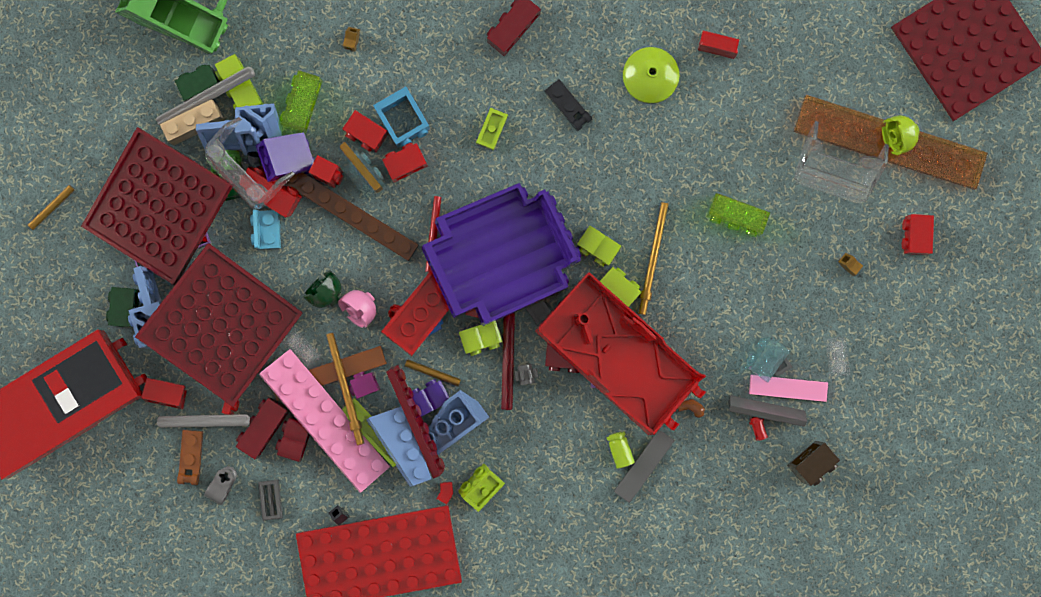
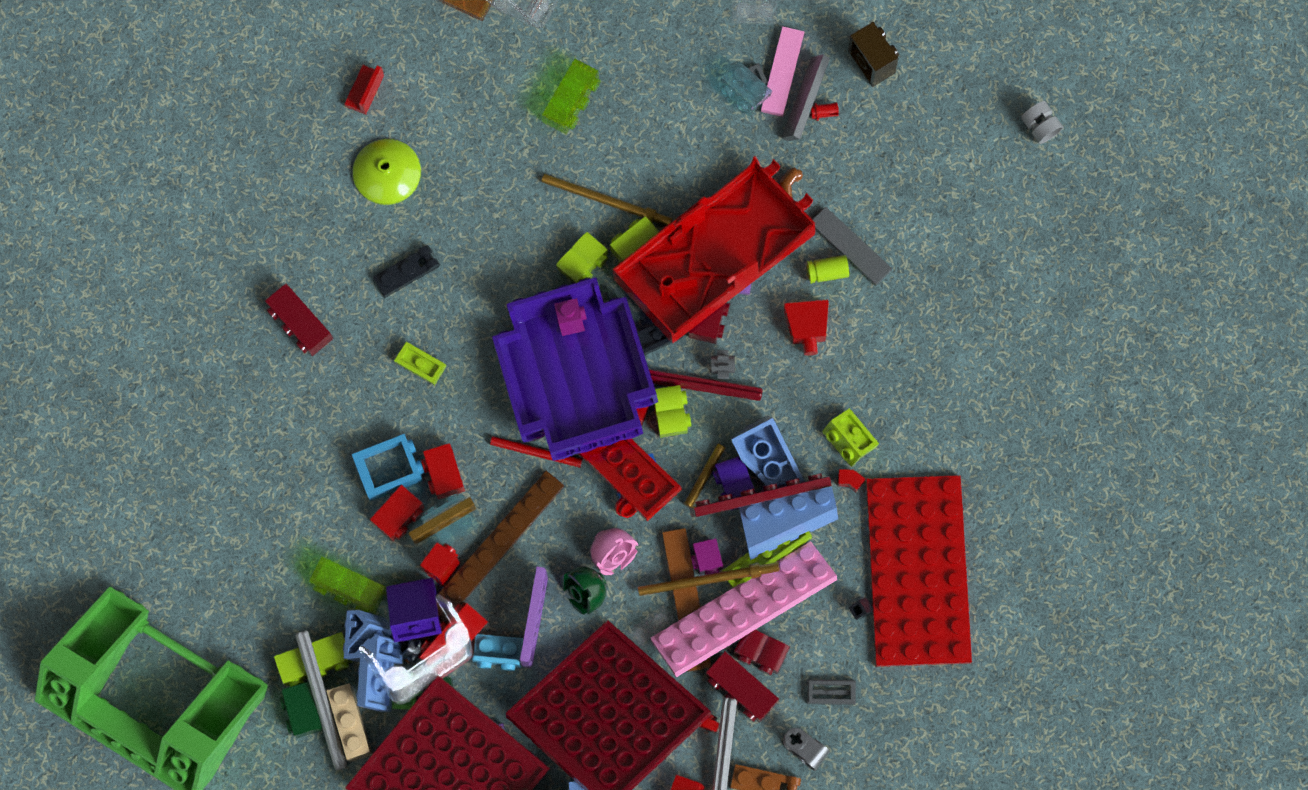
camera: 75 degrees left, 10 degrees down
(293, 253) = (534, 617): none -> medium lavender tile
(351, 38) = (279, 515): pearl gold piece -> none
(544, 243) = (570, 316): none -> magenta brick
(571, 439) = (807, 323): none -> red torso

